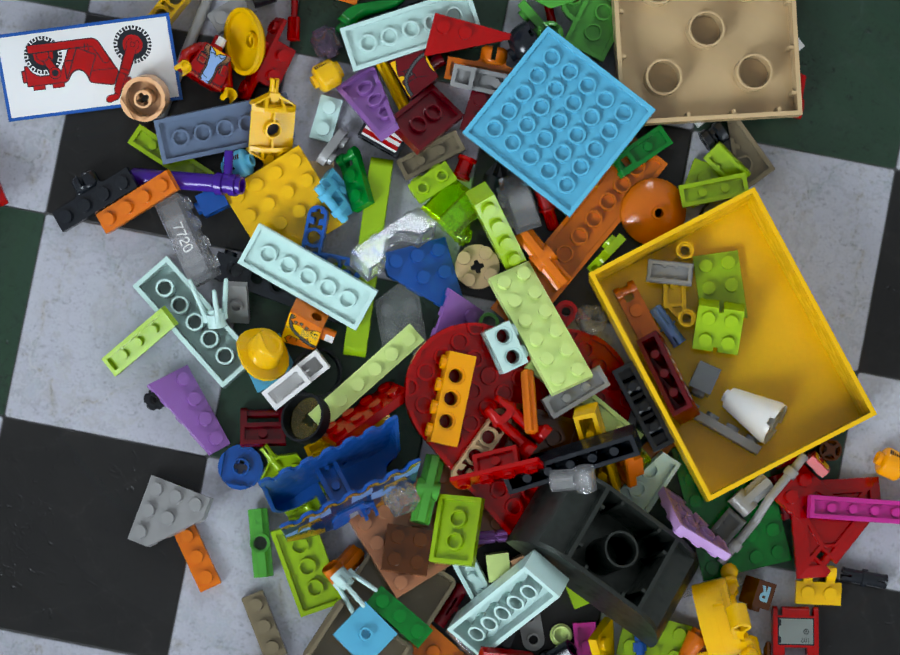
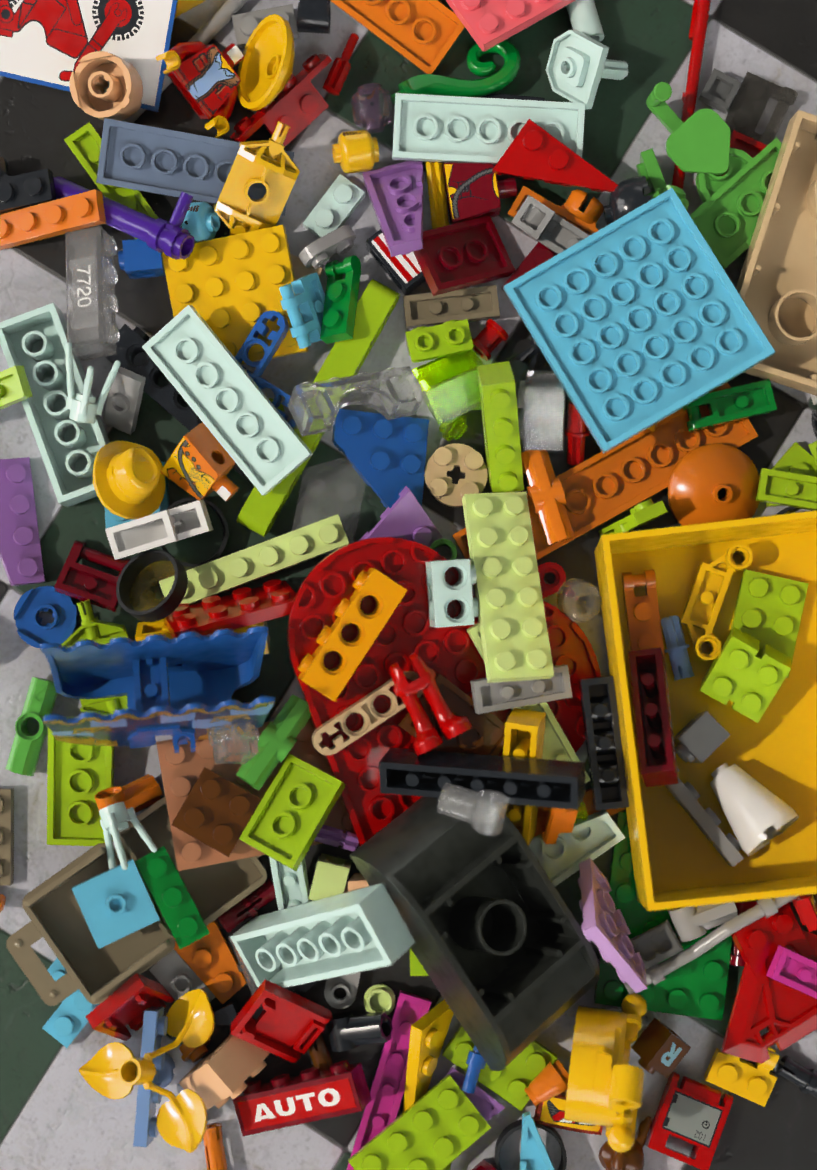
camera: 25 degrees right, 0 degrees up
(496, 464) = (378, 746): red bracket -> none
(529, 401) = (455, 678): orange axle -> none
(669, 272) = (708, 578): light grey plate -> none

